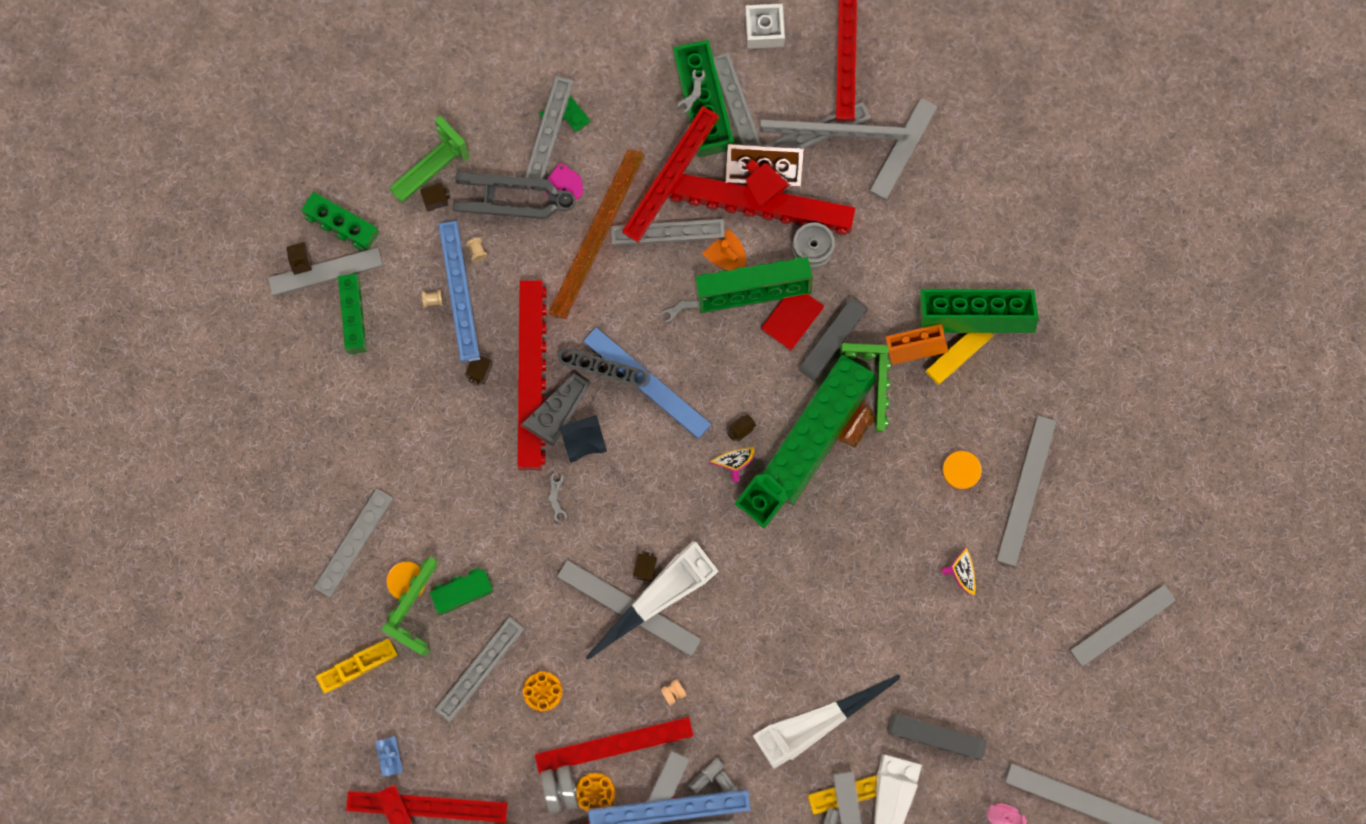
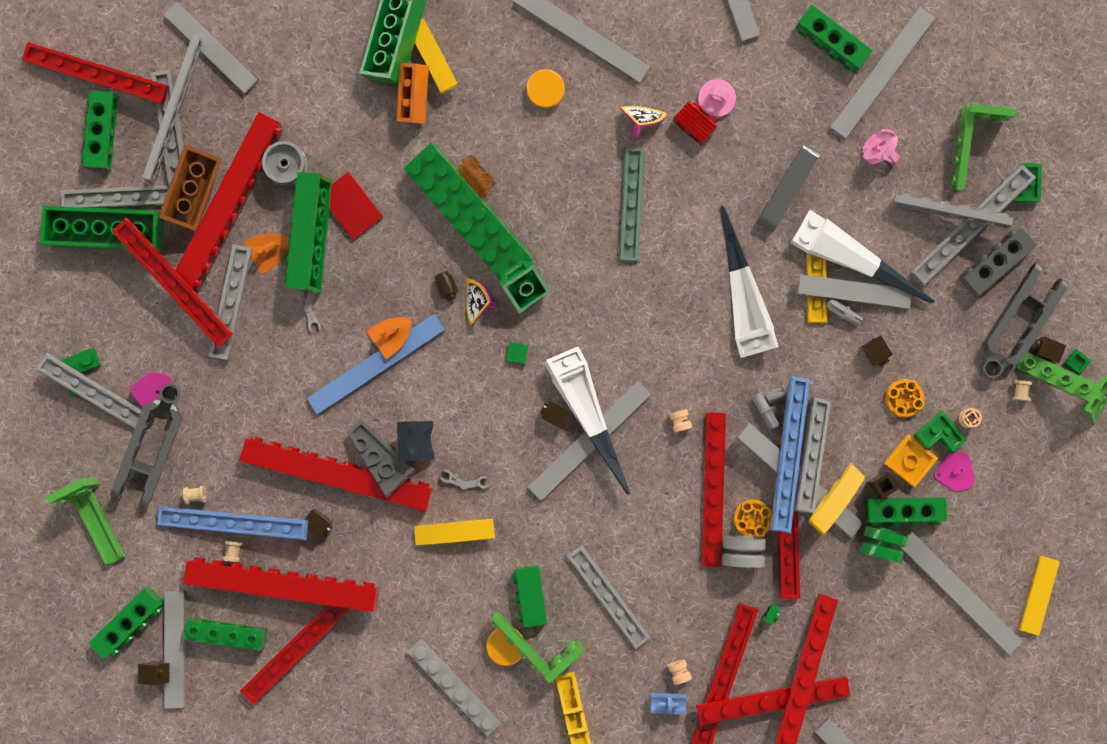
camera: 70 degrees left, 10 degrees up
(361, 387) = (292, 652): none -> red plate
(412, 354) = (281, 585): none -> red brick
(423, 760) = (679, 672): none -> light nougat wheel
(435, 197) = (128, 522): dark brown brick -> none
(504, 501) = (454, 531): none -> yellow slope
(542, 691) = (645, 542): light orange tile -> none
(595, 363) = (348, 411): dark grey beam -> none
(596, 234) = (212, 372): clear orange plate -> none
(678, 388) = (390, 335): none -> orange shield
(688, 102) = (102, 243): light grey piece -> none
(695, 514) = (517, 353): none -> green tile
(764, 26) = (43, 146): white brick -> none
(765, 182) = (208, 192): red torso -> none
(787, 78) = (103, 159): none -> green brick
(832, 339) = (383, 172): dark grey beam -> none
(870, 352) = (440, 137): bright green bracket -> none
(874, 585) = (631, 204): none -> sand green tile
(973, 625) = (695, 123): none -> red brick
(1005, 641) = (717, 98): none -> bright pink tile
(1116, 715) = (830, 28): none -> green brick

